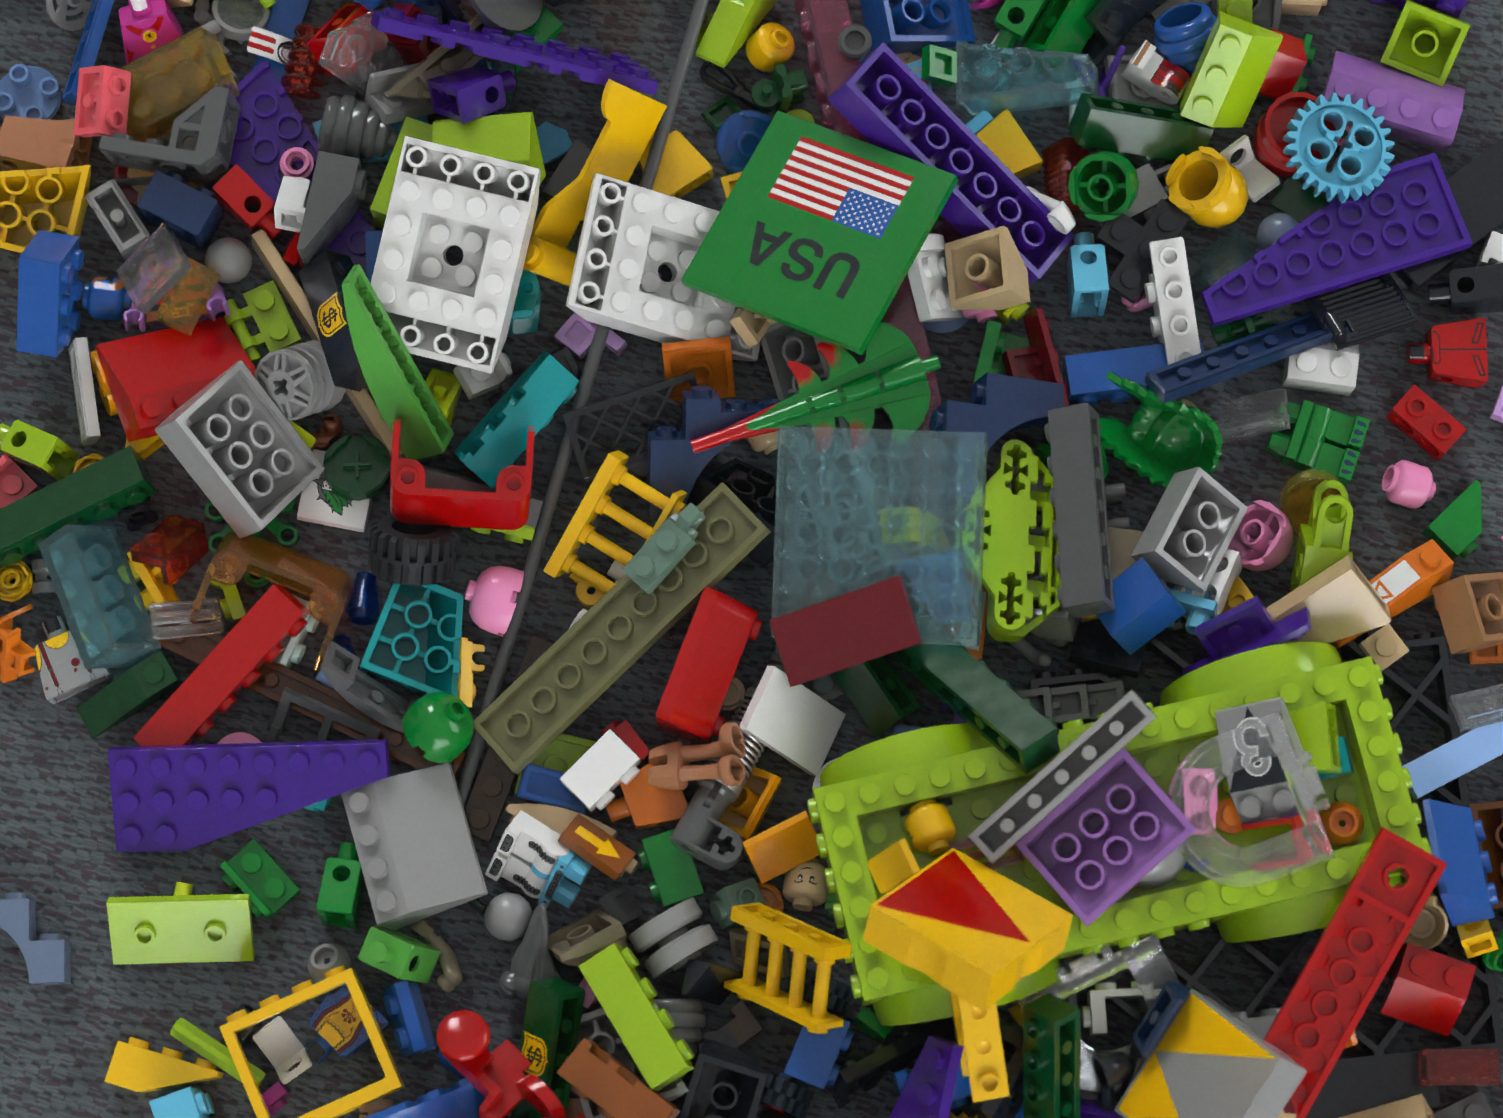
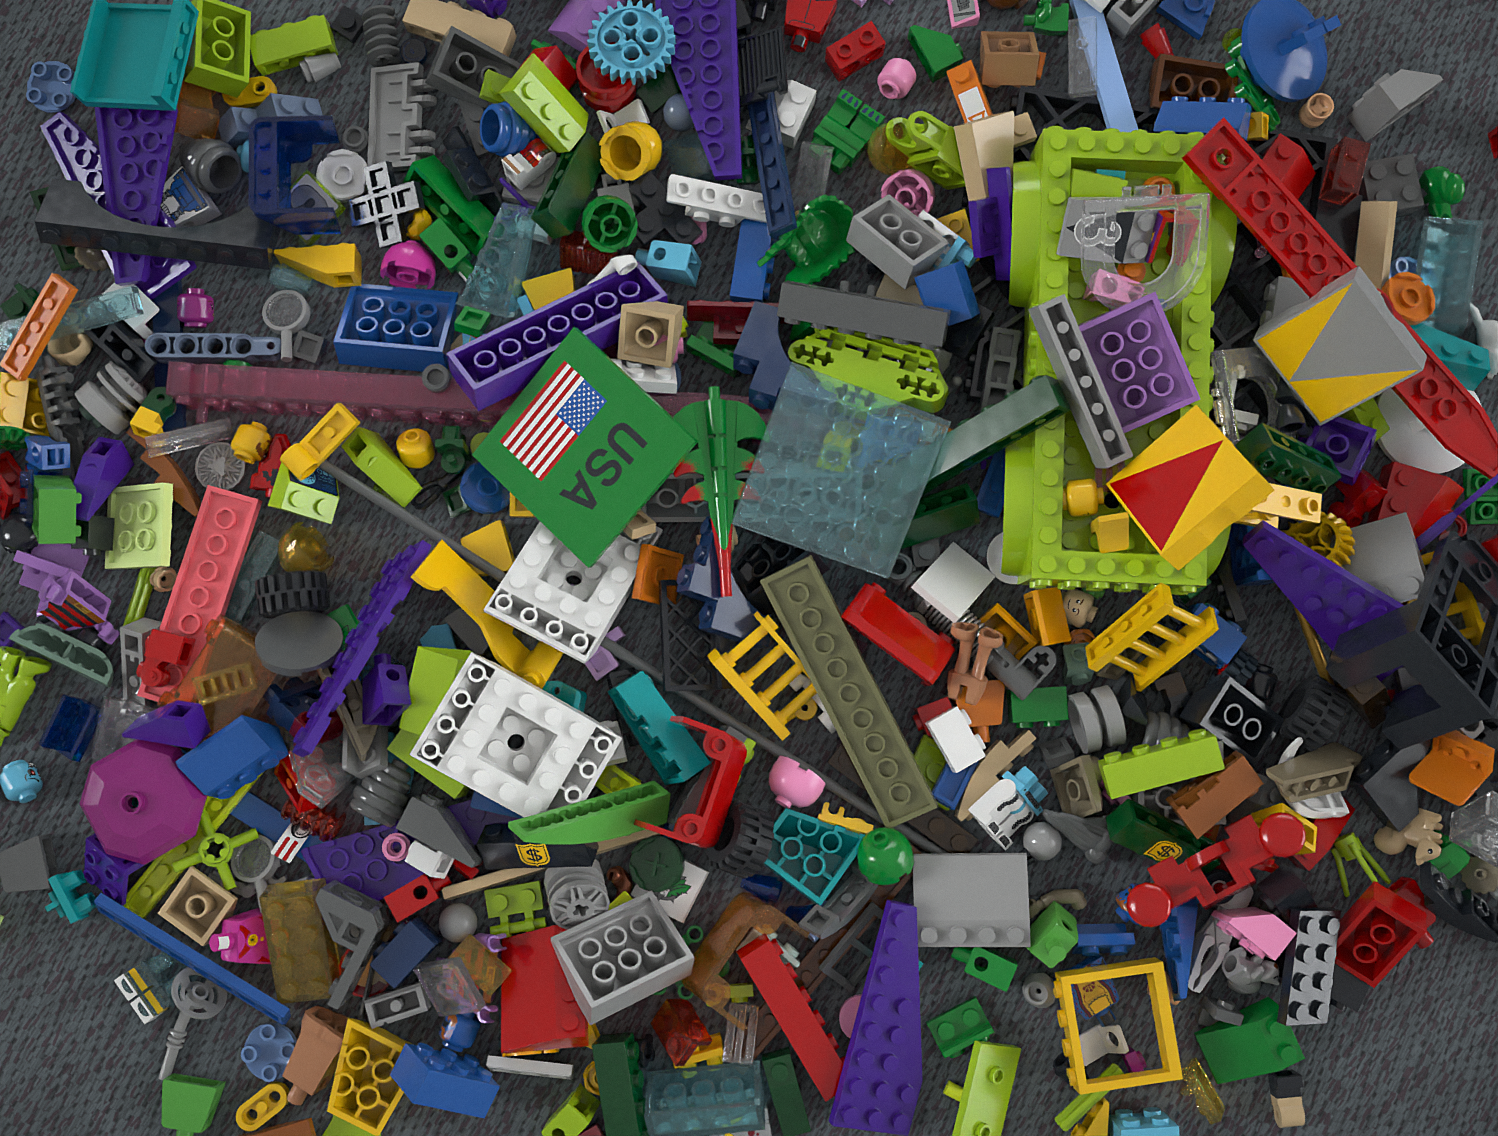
camera: 75 degrees left, 5 degrees up
(102, 101) = (297, 994): coral bracket -> none
(596, 847) = (1013, 758): dark orange tile -> none
(665, 549) = (801, 641): sand green hinge -> none
(846, 631) = (906, 518): dark red tile -> none
(1159, 1016) = (1268, 369): dark blue slope -> none

